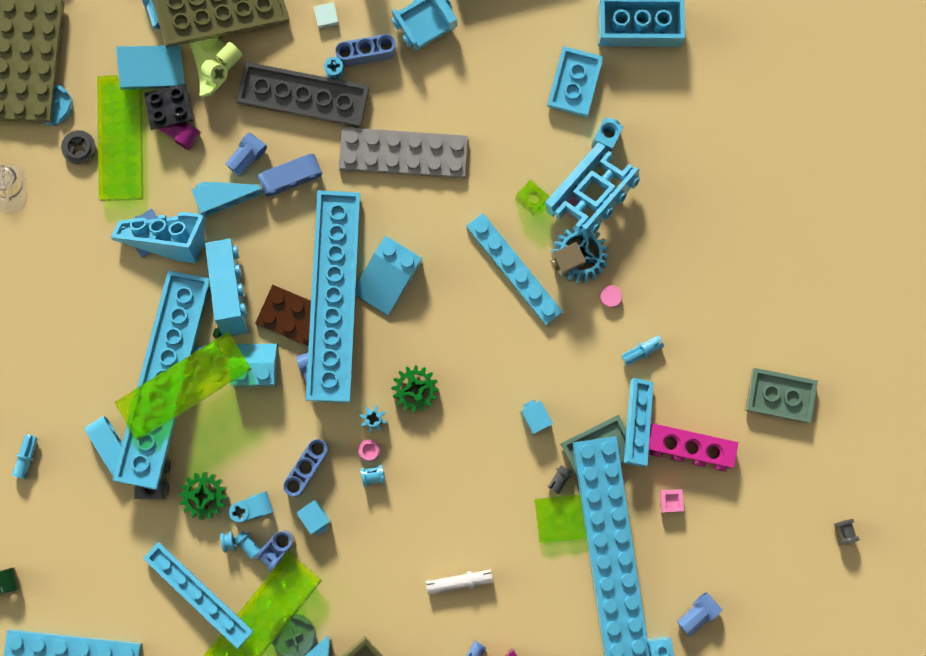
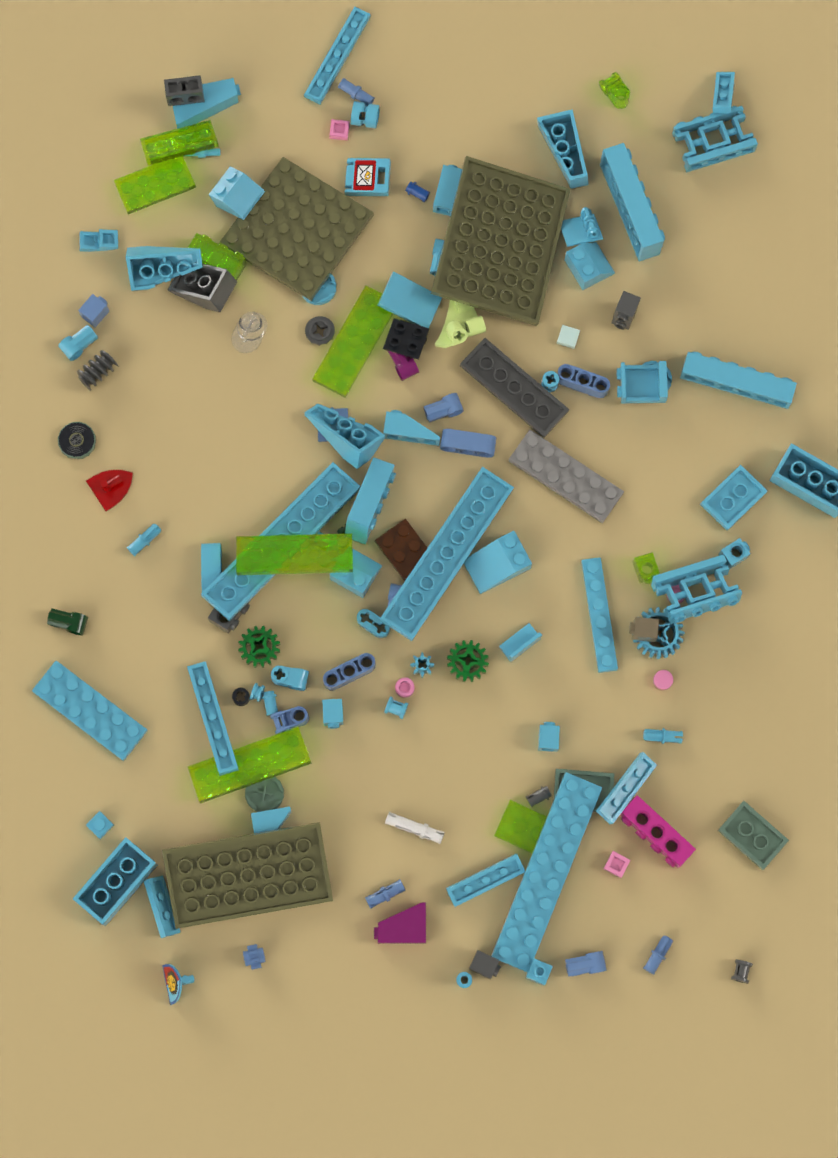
camera: 35 degrees right, 5 degrees down
(208, 558) = (247, 696): none -> black bush
(300, 411) = (370, 626): none -> medium azure beam
(454, 340) = (520, 642): none -> medium azure panel
(556, 591) = (485, 880): none -> medium azure plate
(760, 563) = (658, 954): none -> medium blue axle

